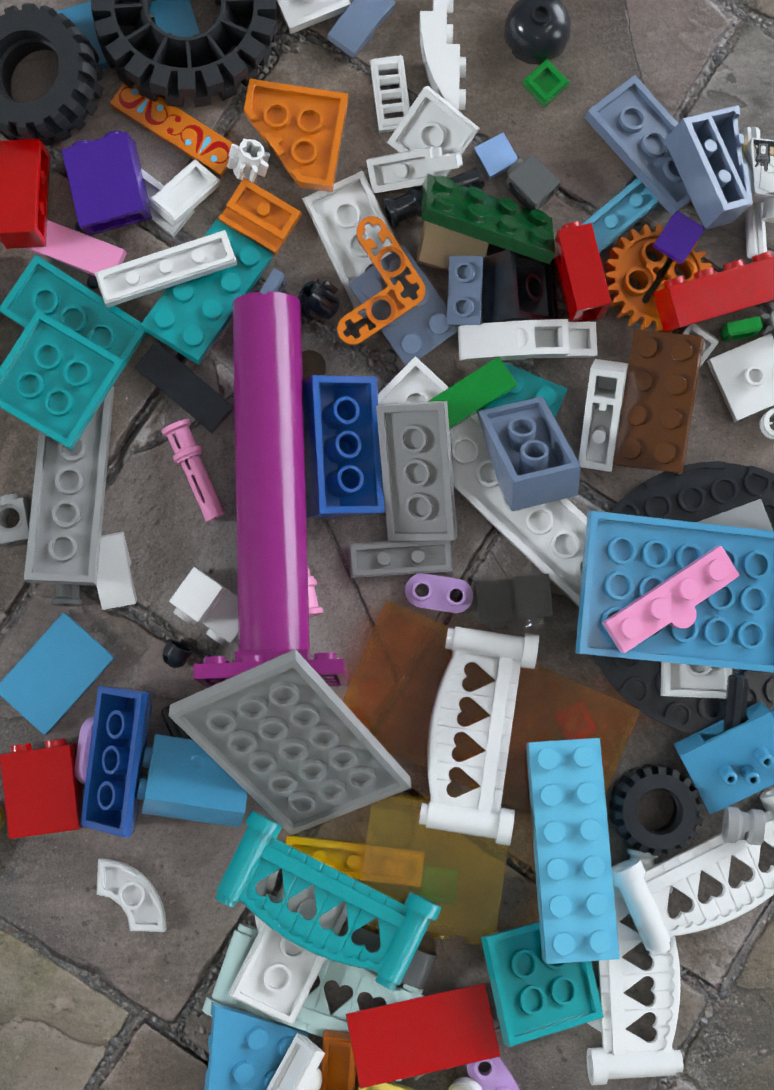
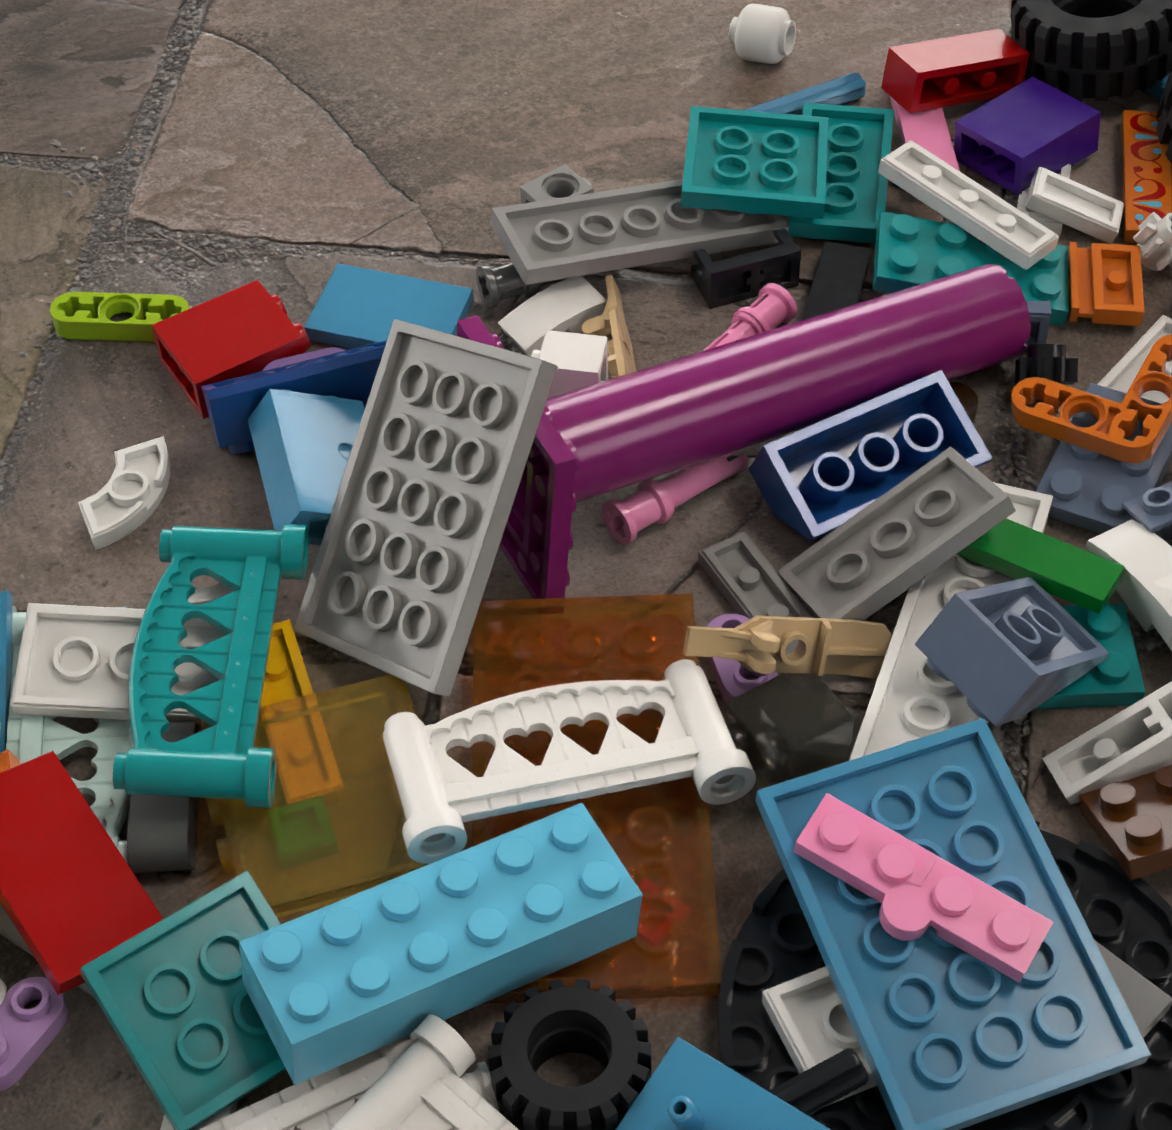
camera: 65 degrees right, 35 degrees down
(133, 429) = (747, 273): none -> black hinge
(171, 547) = (614, 327): none -> tan piece
(458, 567) = (822, 647): none -> tan piece

